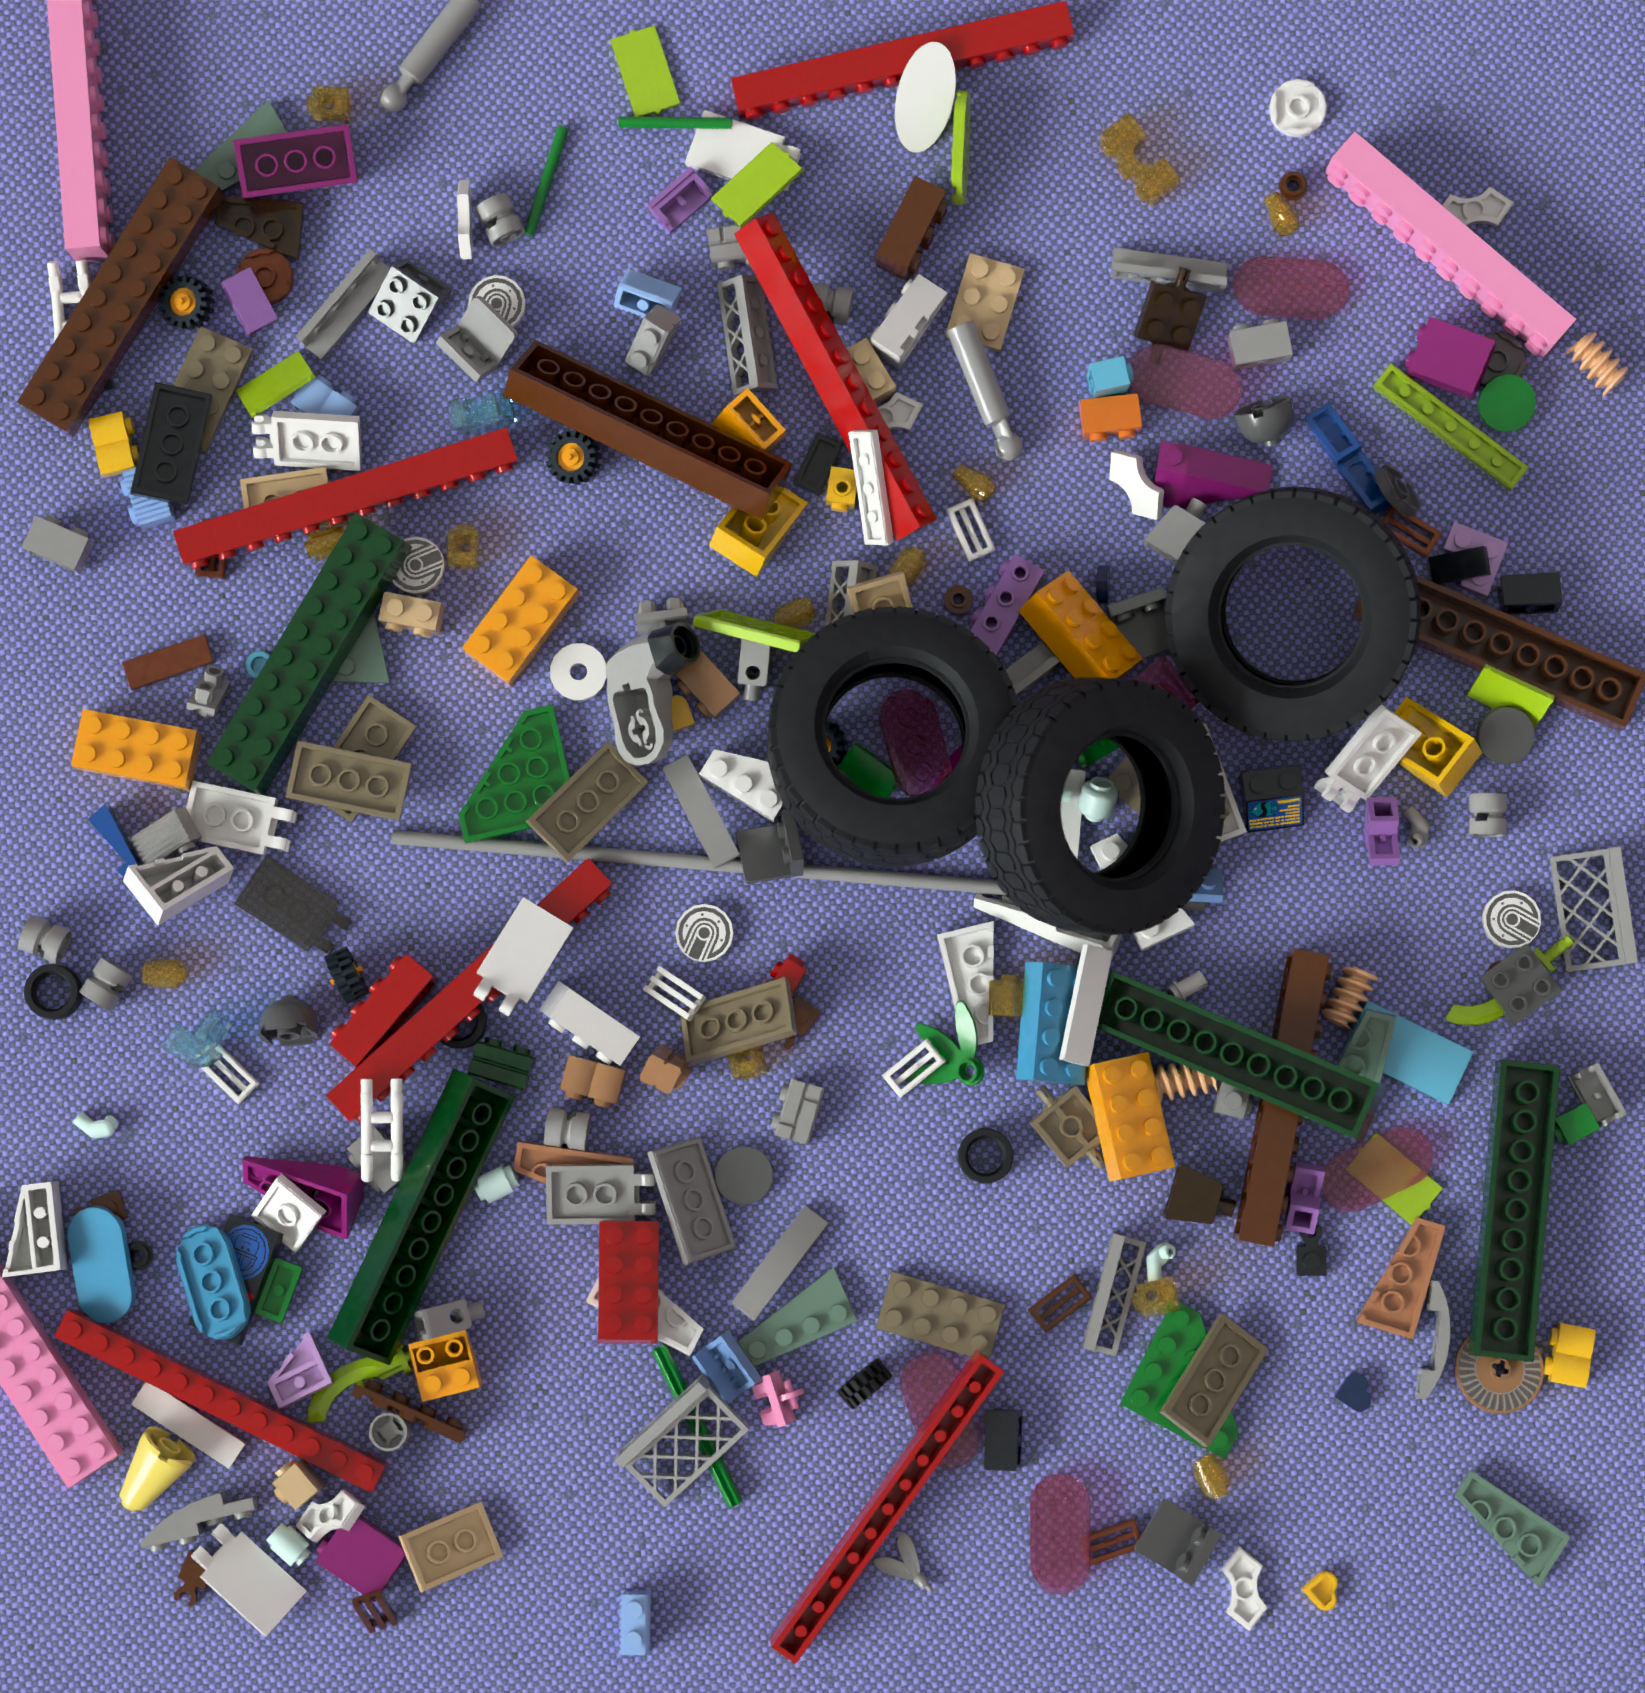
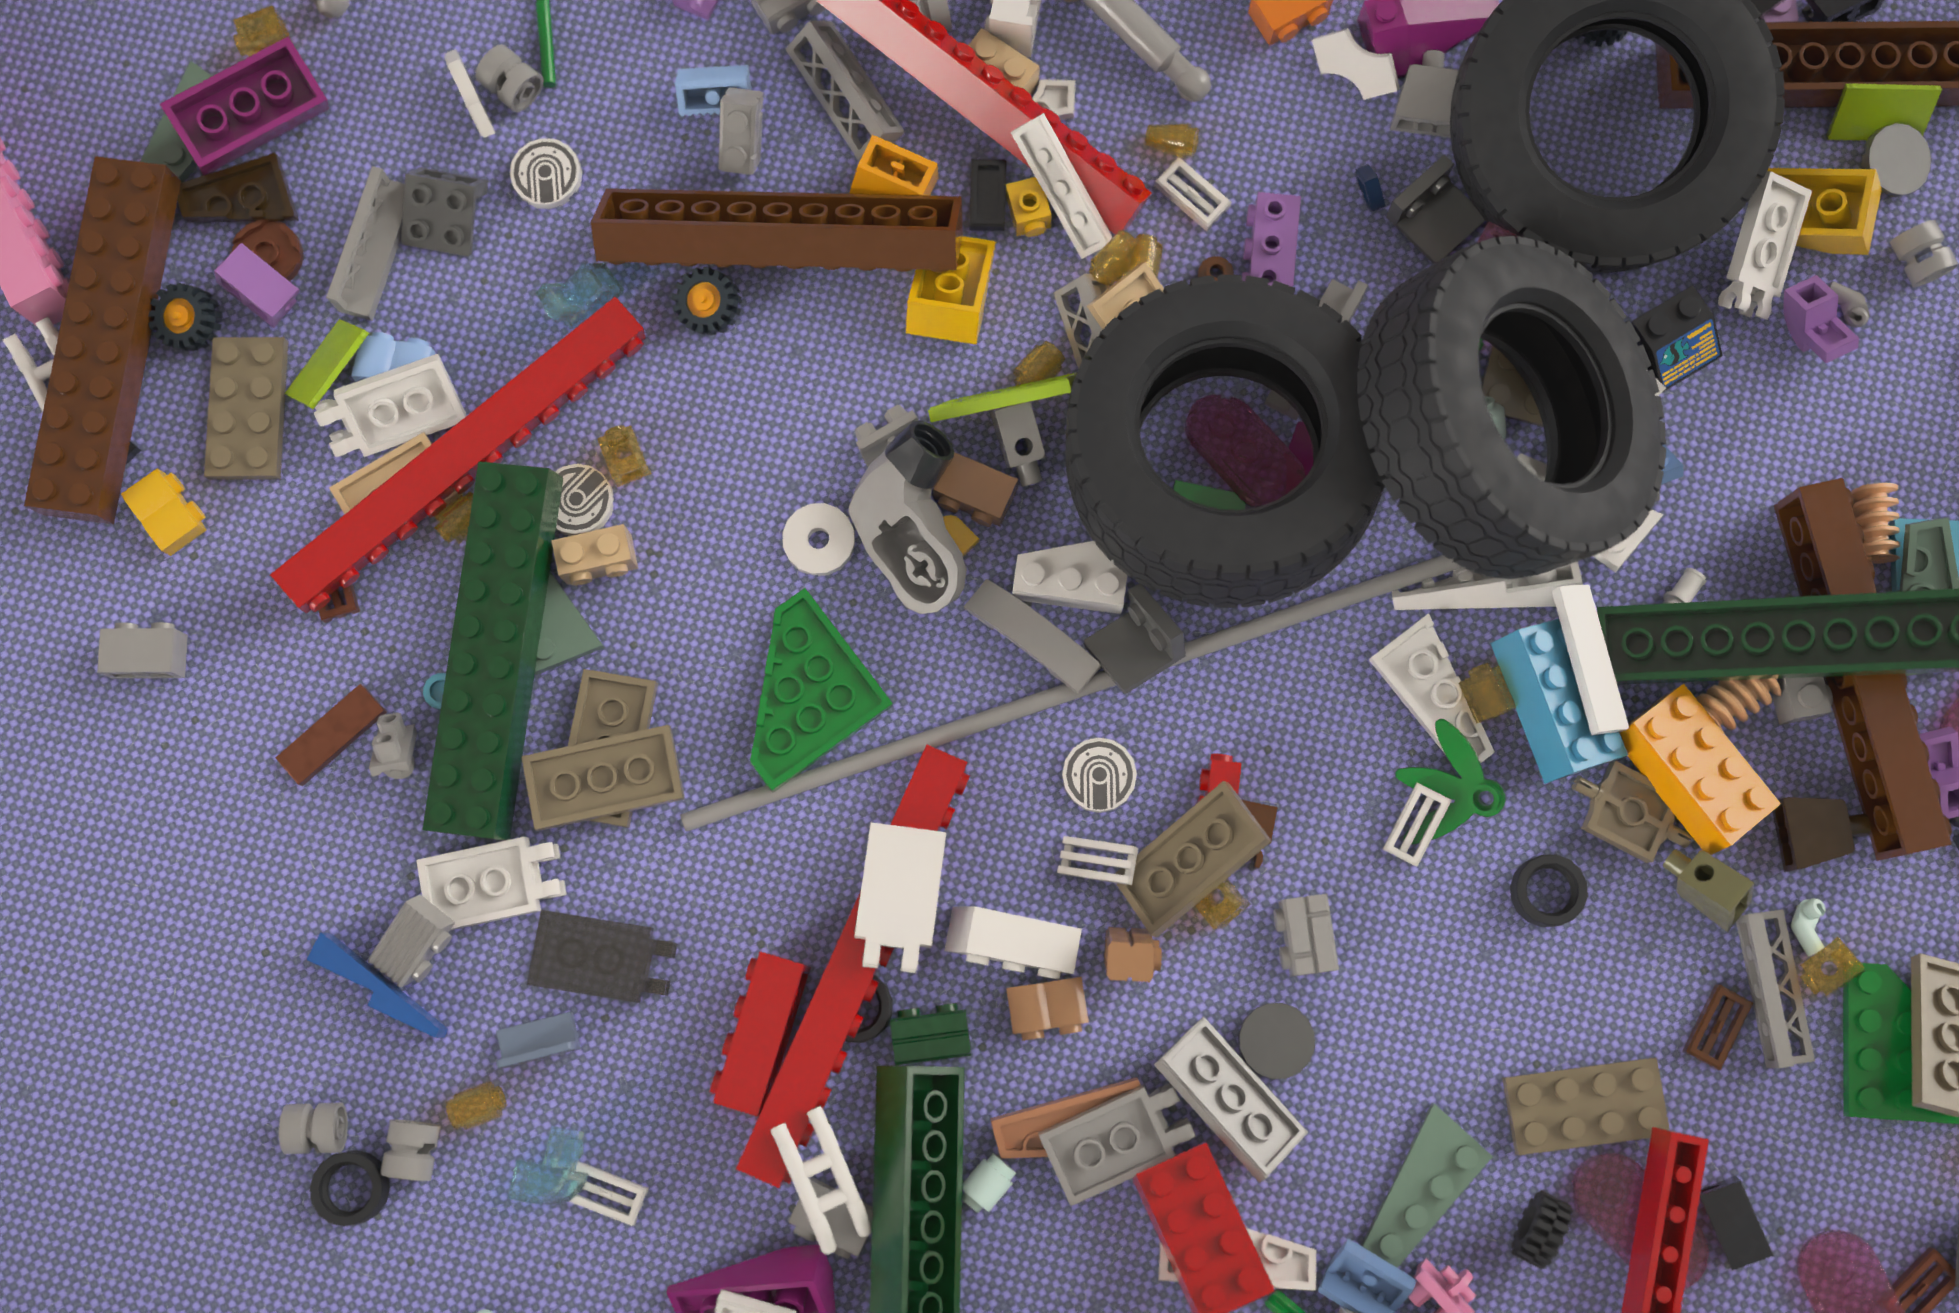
camera: 25 degrees left, 5 degrees down
(136, 749) = (333, 852): light orange brick -> none
(144, 510) = (228, 552): light blue brick -> none
(171, 444) = (230, 480): black tile -> none
(178, 882) = (447, 988): white wedge -> none
(225, 946) = (537, 1040): none -> sand blue panel
(289, 1021) = (652, 1097): dark grey cylinder -> none
(346, 975) = (698, 1010): black wheel -> none
(478, 340) = (542, 214): light grey bracket -> none
(521, 620) = (726, 508): light orange brick -> none
(567, 1129) = (1043, 1078): light grey wheel -> none
(587, 802) = (895, 681): dark tan plate -> none
(779, 1263) = (1369, 1128): light grey slope -> none
(883, 558) = (1112, 259): none -> clear yellow cone
(1079, 630) = (1368, 242): light orange brick -> none
(1098, 1203) = (1711, 886): none -> olive torso

